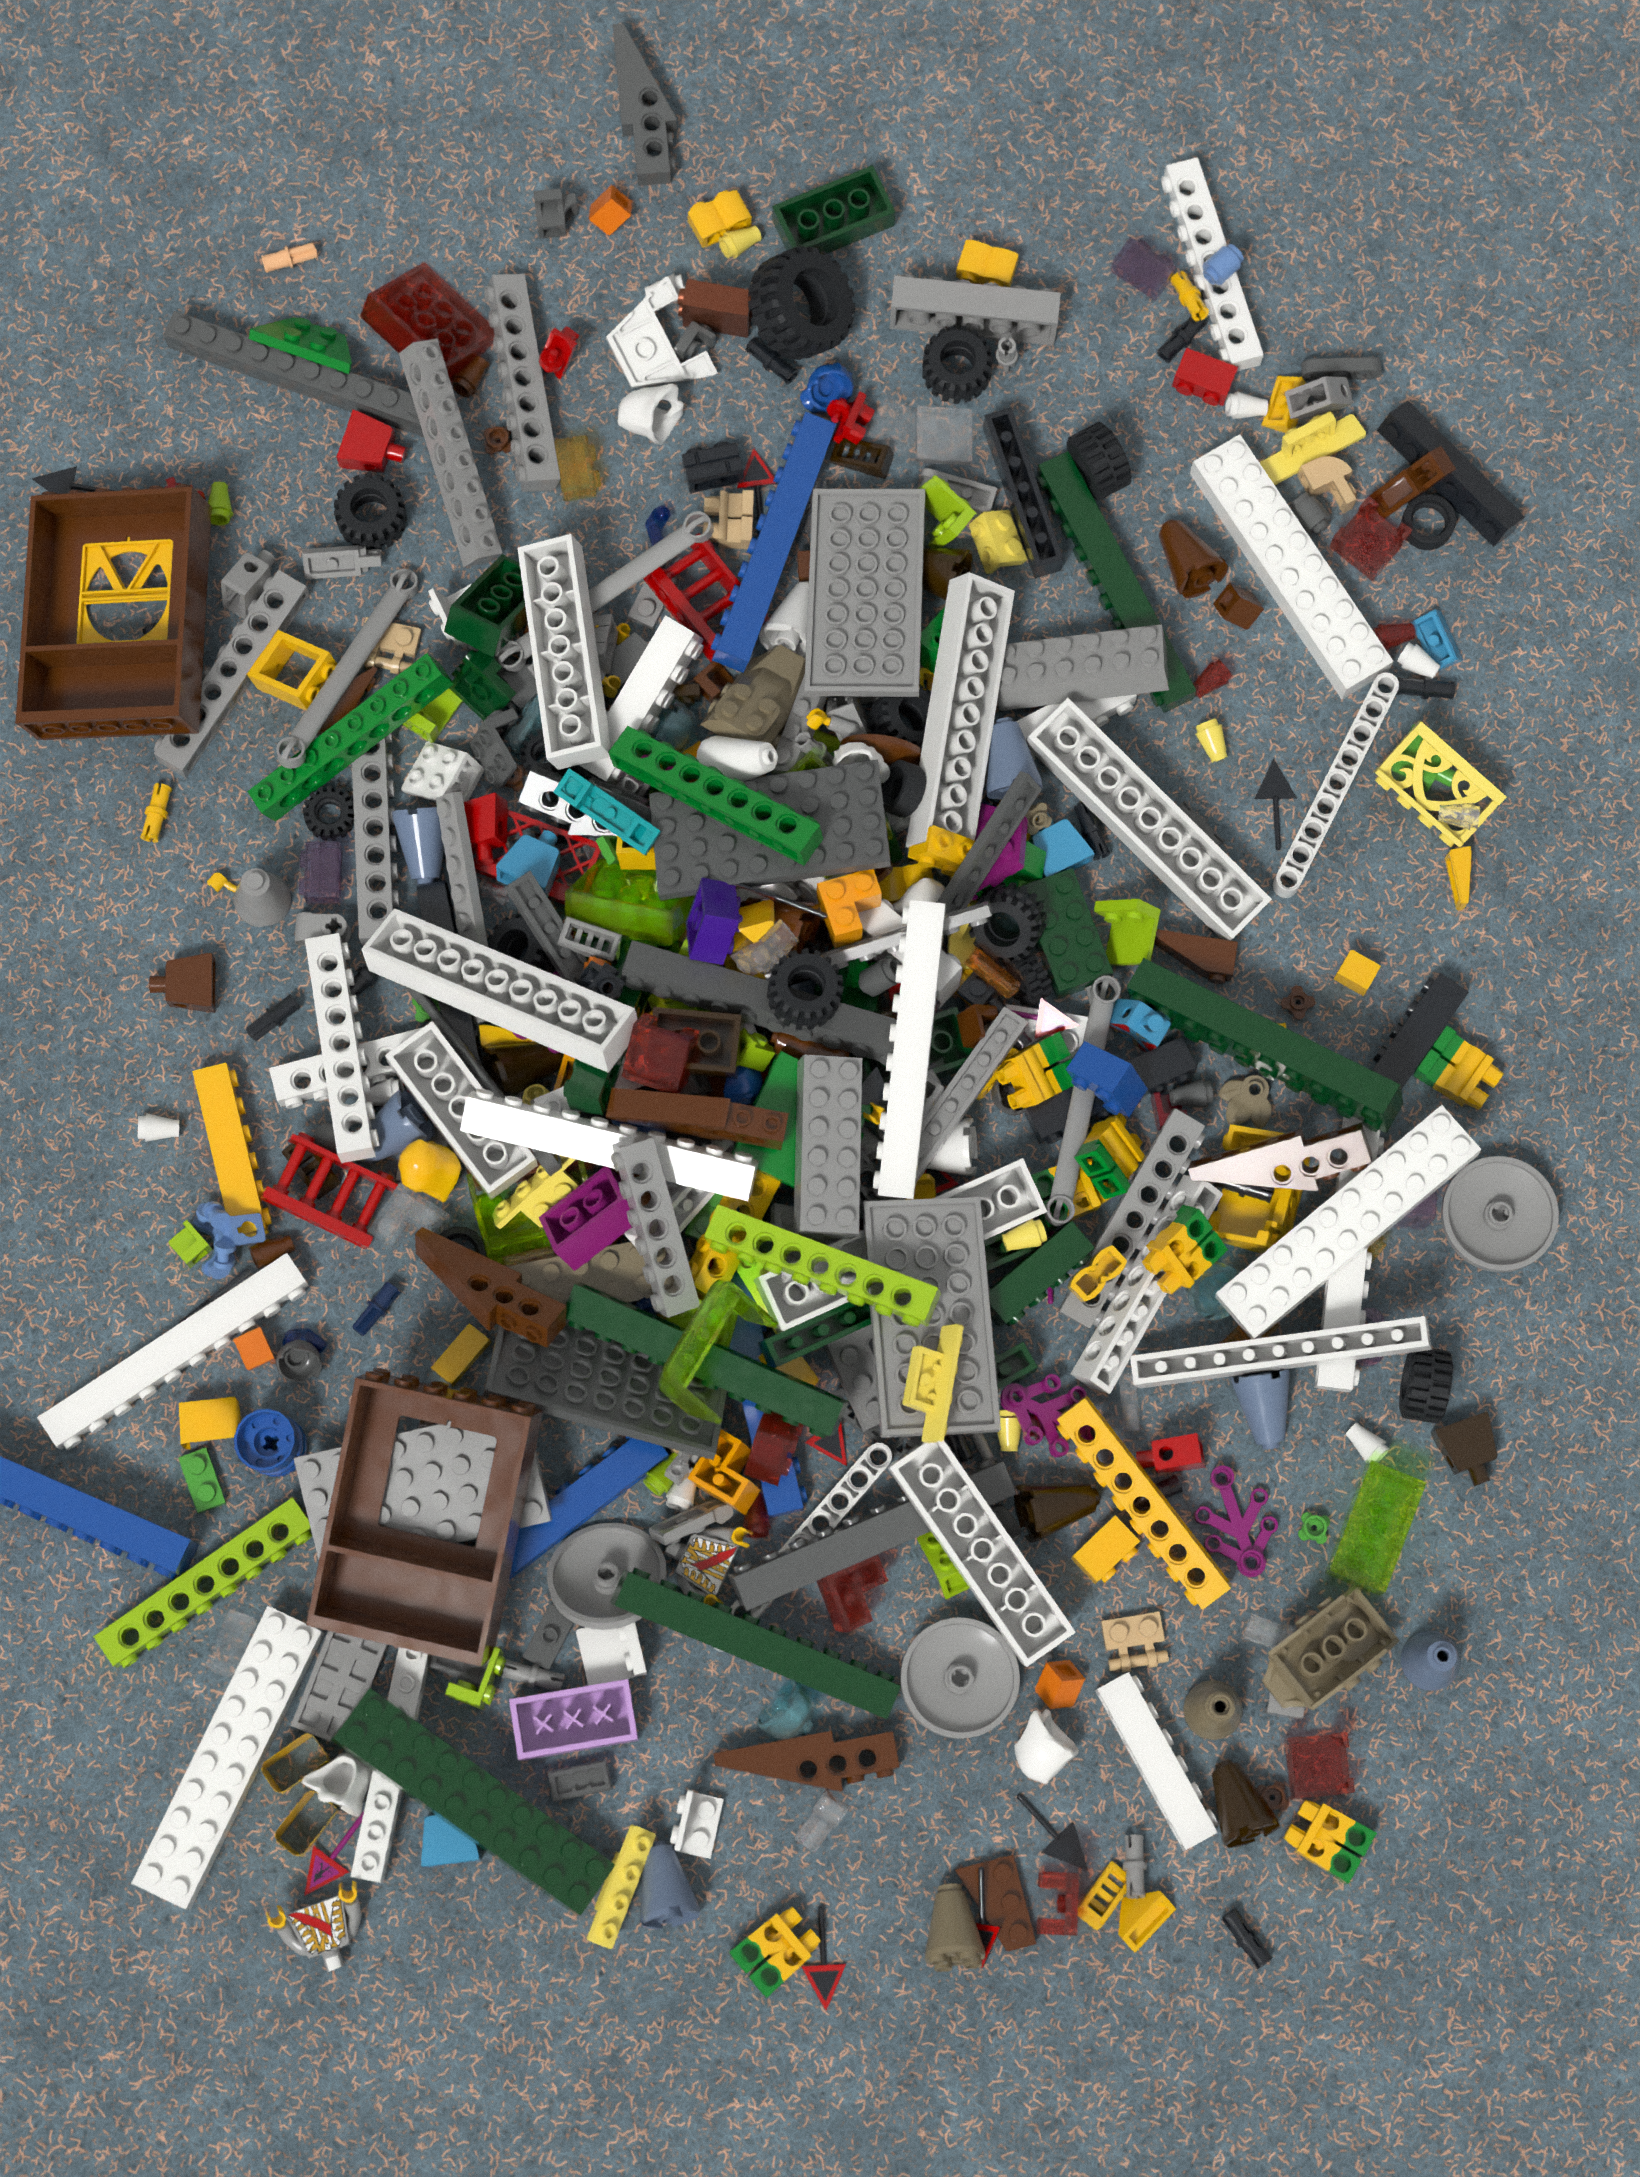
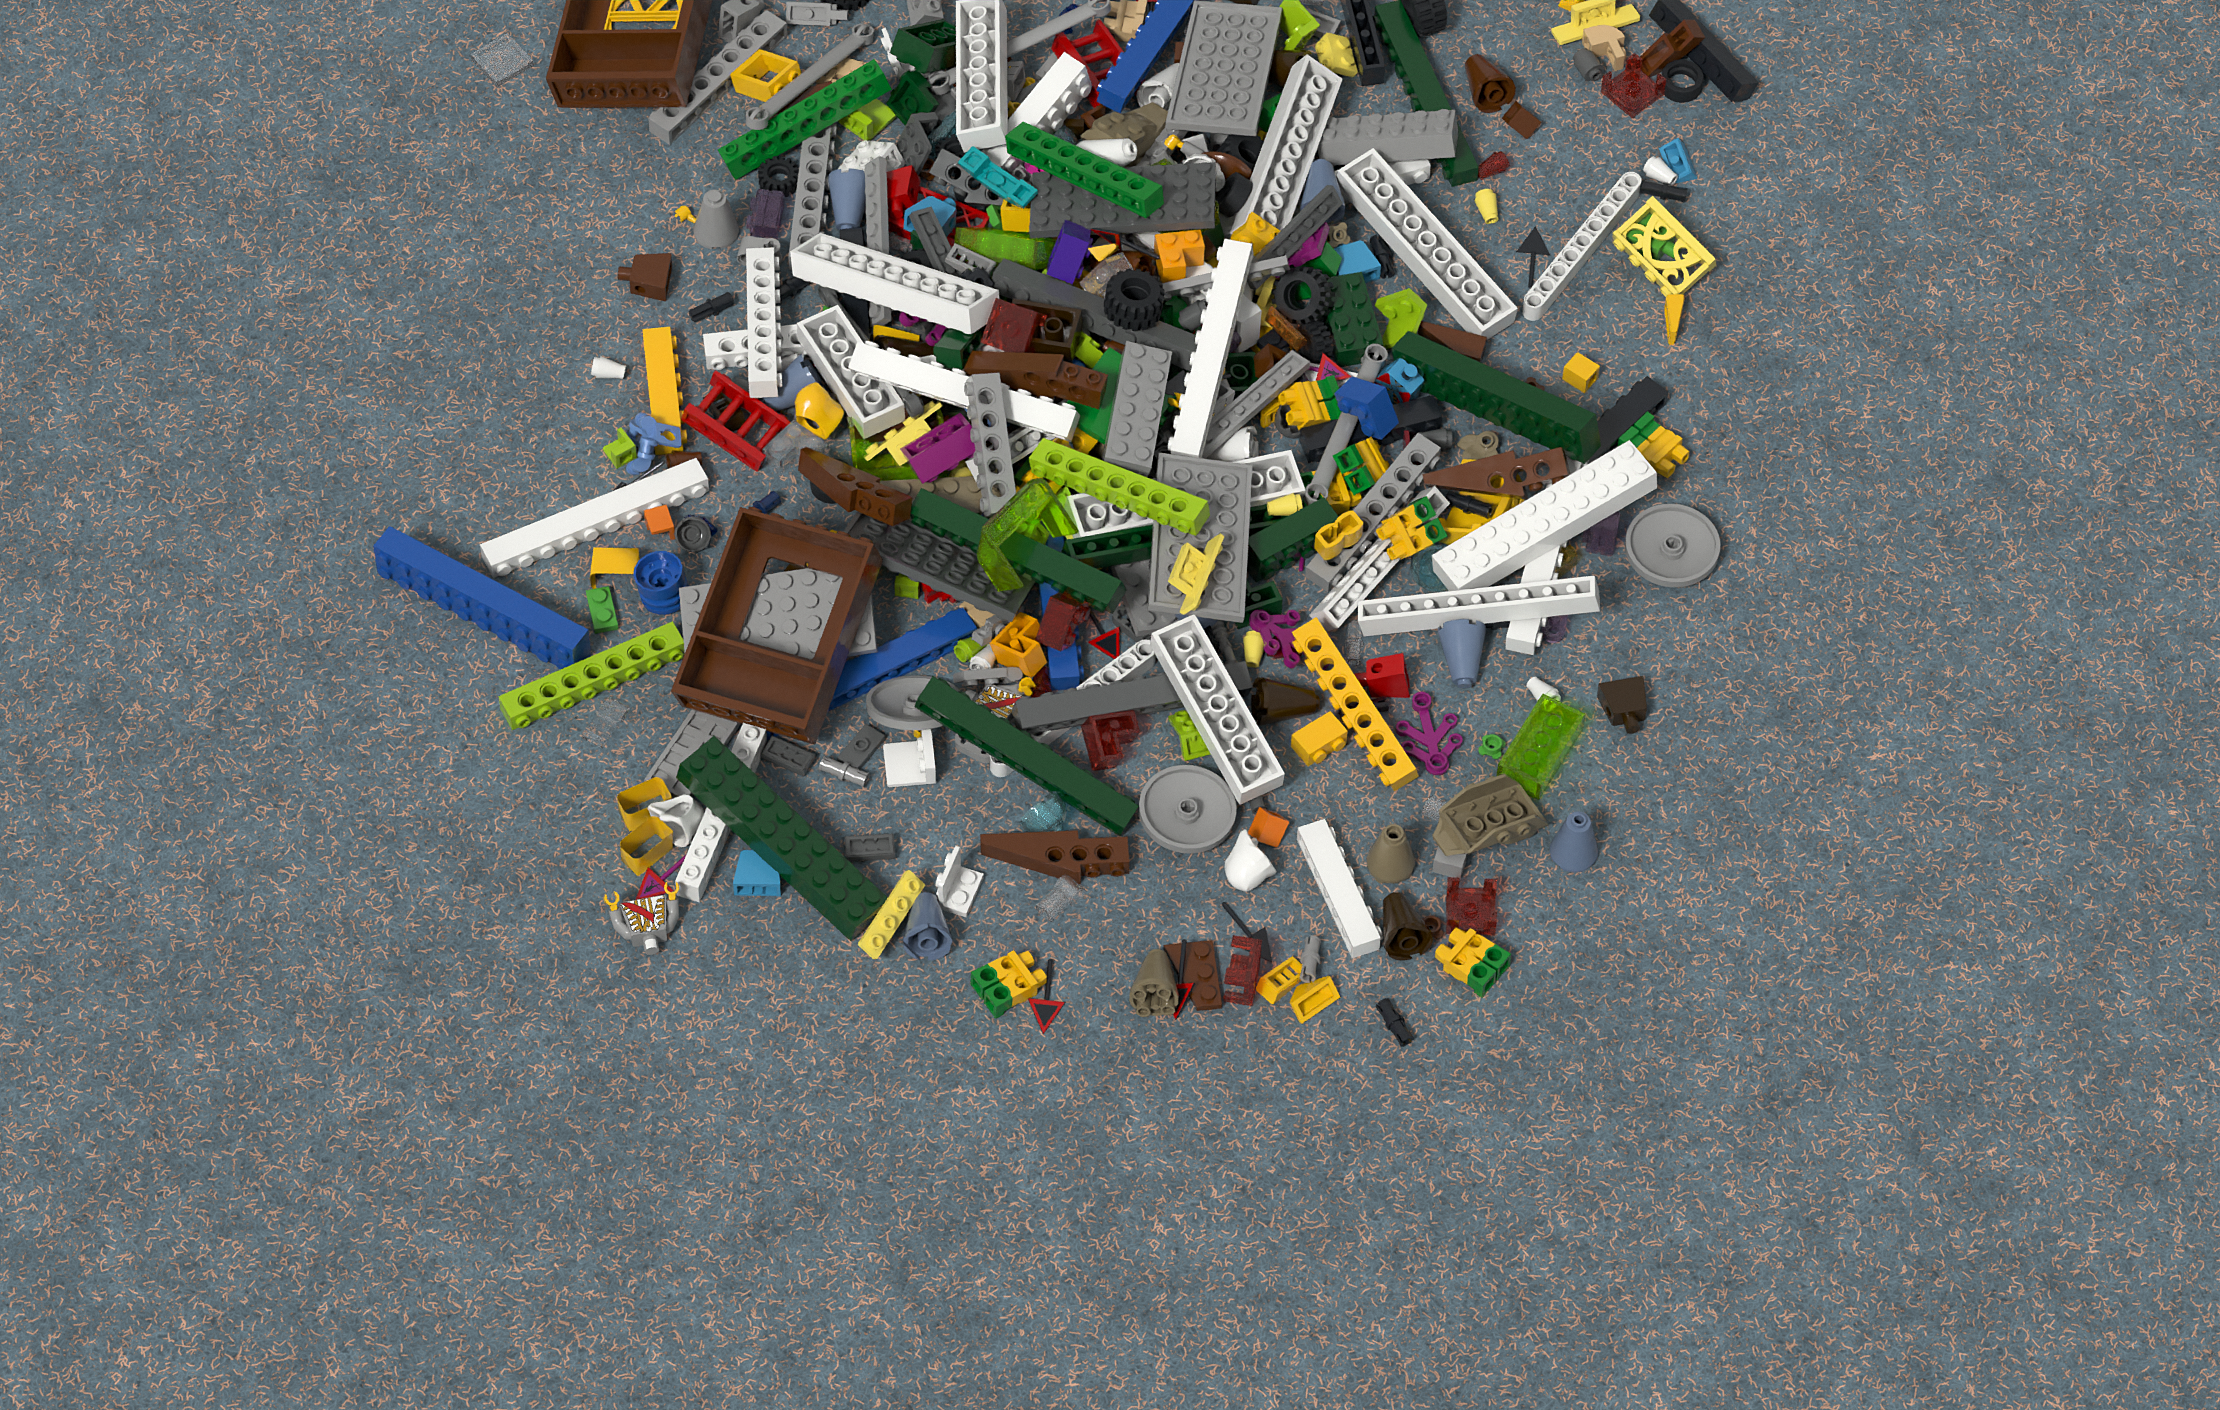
camera: 10 degrees right, 20 degrees down
(156, 813) = (642, 162): yellow pin -> none
(228, 1758) = (590, 795): white brick -> none
(466, 1692) = (796, 772): lime bracket -> none
(573, 1720) = (871, 800): lavender brick -> none
(1133, 1632) = (1334, 801): tan plate -> none
(1291, 566) = (1566, 96): white brick -> none
(1394, 634) = (1641, 152): clear red cone -> none
(1426, 1385) = (1594, 649): black tyre -> none
(1460, 815) = (1679, 269): clear cone -> none

